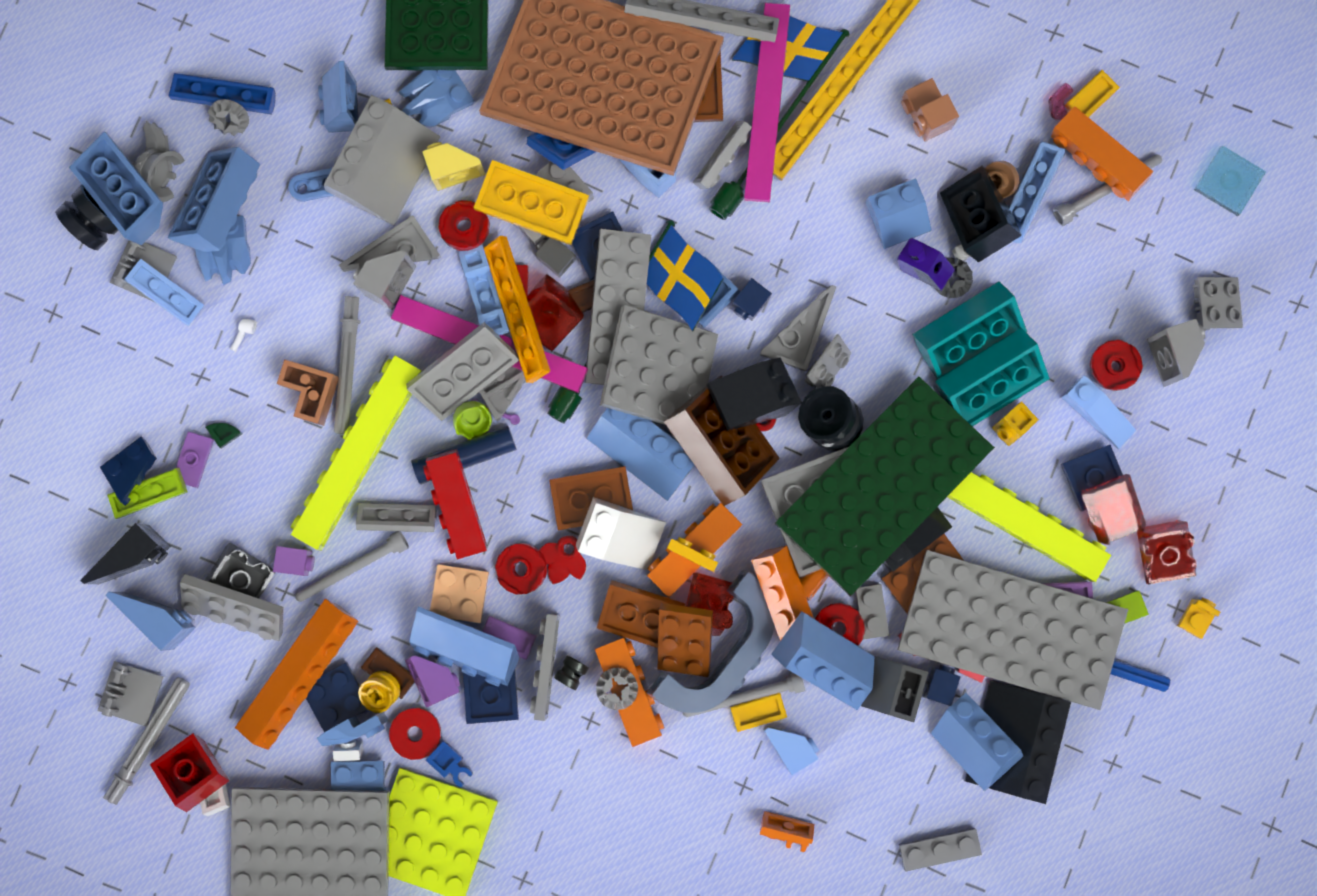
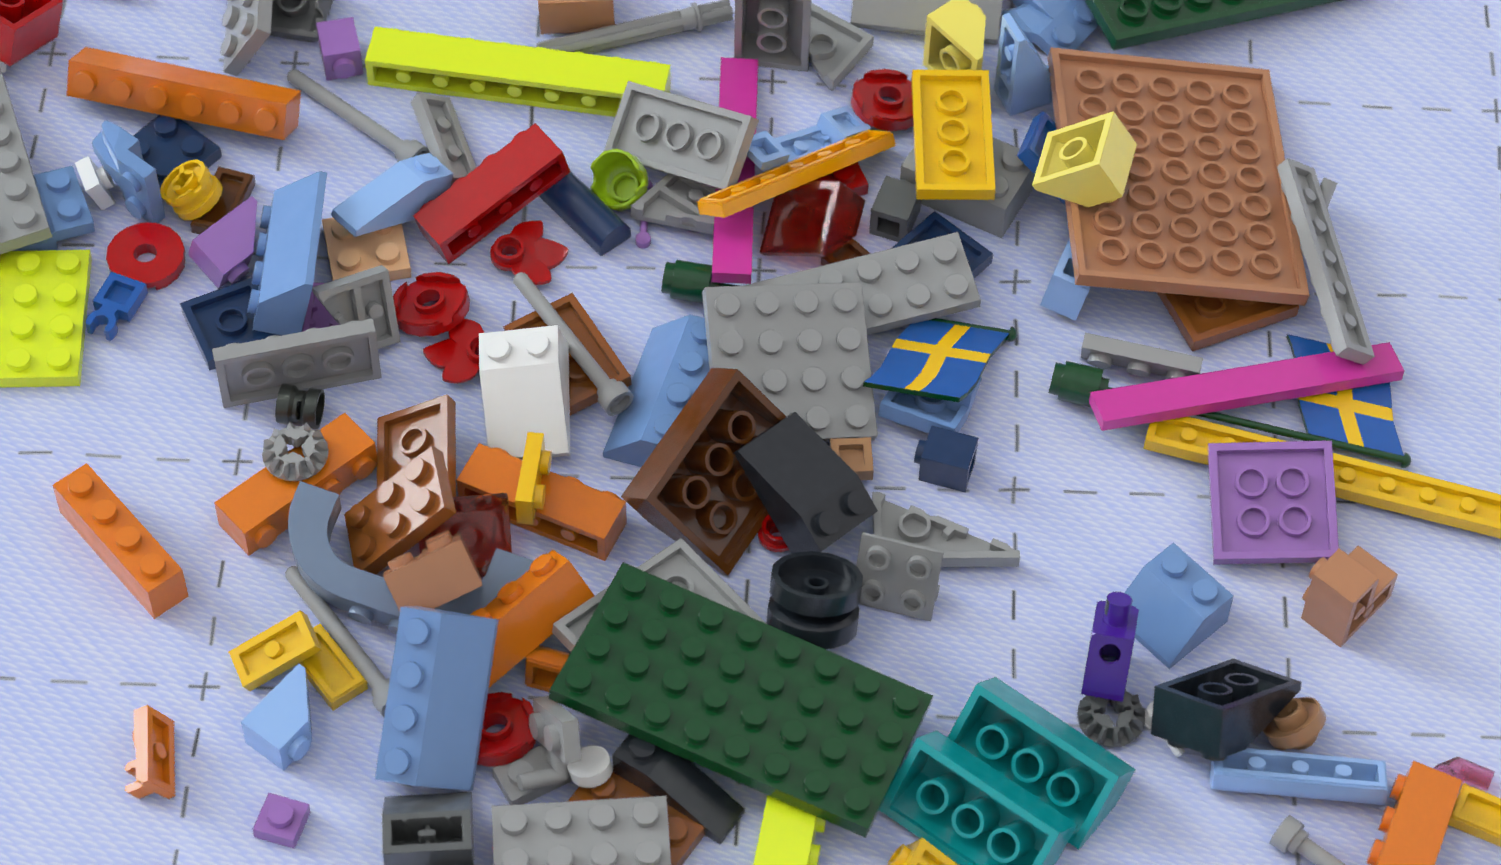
camera: 65 degrees right, 30 degrees down
(439, 567) = (394, 195): none -> light blue slope
(484, 135) = (1021, 75): none -> light blue slope
(503, 491) = (529, 252): none -> red plate
(521, 614) = (363, 298): none -> light grey wing
(592, 132) = (1086, 161): none -> light yellow slope
(632, 809) = (120, 540): none -> orange brick
(636, 482) = (612, 394): none -> light grey piece
(729, 356) = (856, 454): none -> medium nougat plate
(745, 740) = (275, 650): none -> yellow plate
(749, 634) = (436, 575): none -> nougat brick
(852, 768) = (281, 820): none -> medium lavender plate
(854, 125) = (1272, 502): none -> medium lavender plate
(877, 598) = (560, 735): none -> light grey plate
(889, 585) = (593, 769): none -> white tile

